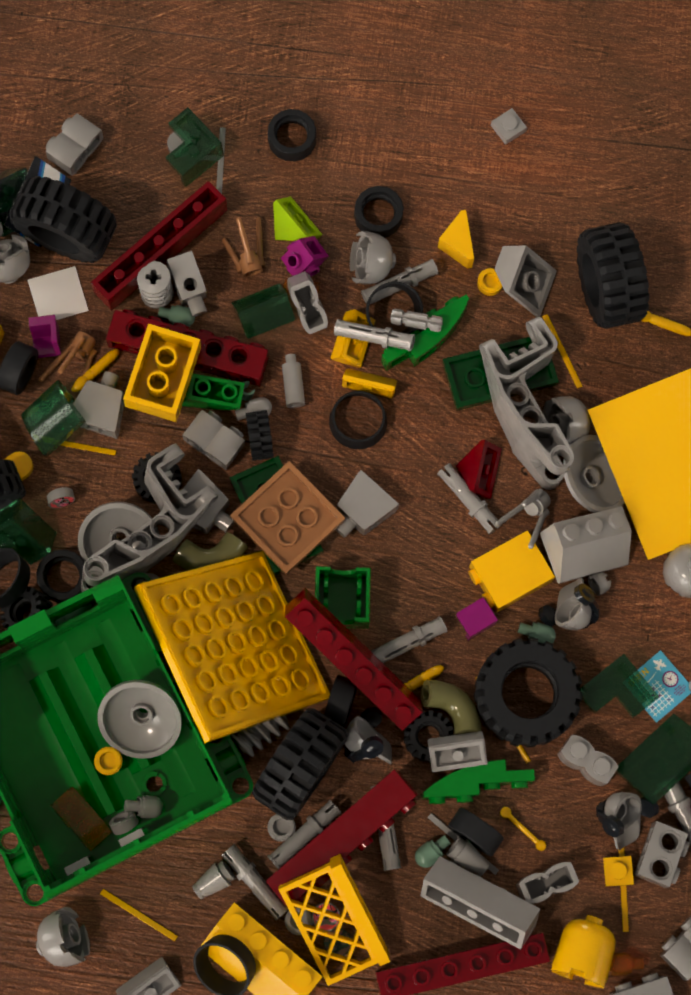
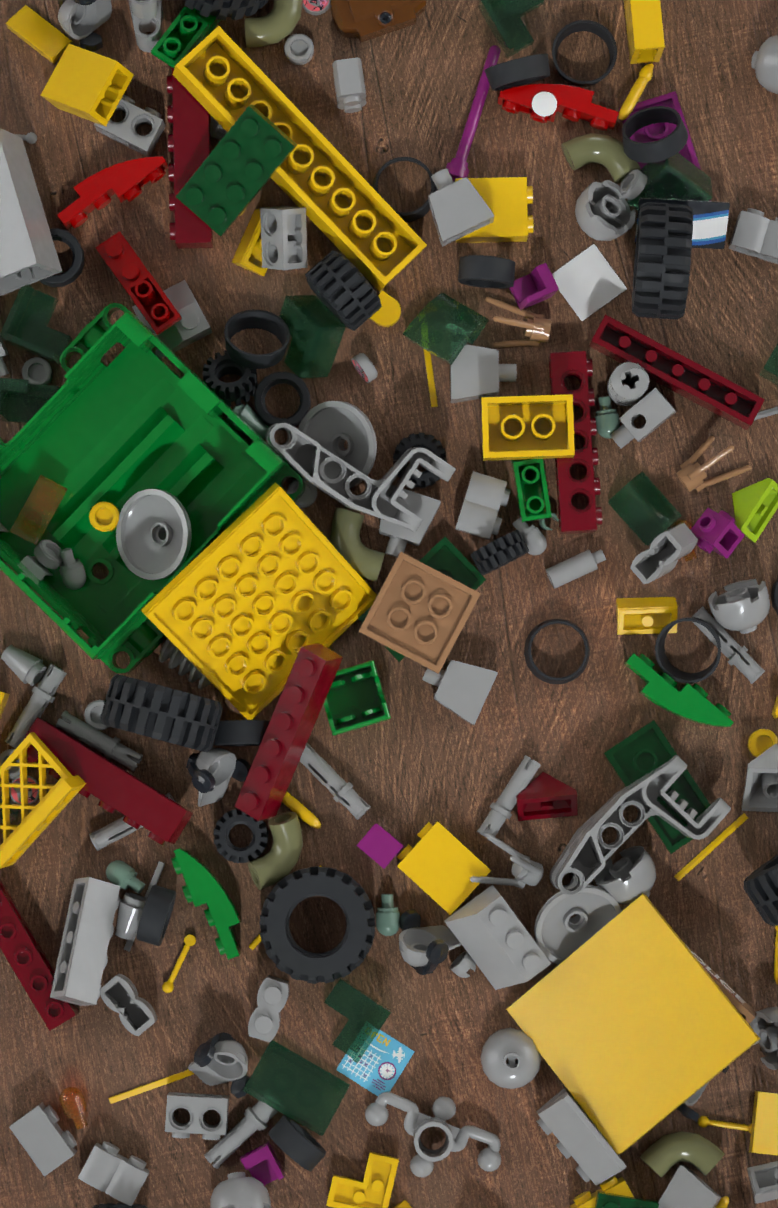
camera: 75 degrees right, 10 degrees up
(95, 370) = (516, 353): yellow piece -> none
(369, 383) = (603, 649): yellow slope -> none
(384, 337) = (653, 650): light grey pin -> none
(416, 320) = (683, 678): light grey axle -> none
(457, 751) = (231, 869): light grey slope -> none
(585, 951) = (73, 1064): yellow cylinder -> none
(618, 871) = (167, 1075): yellow plate -> none

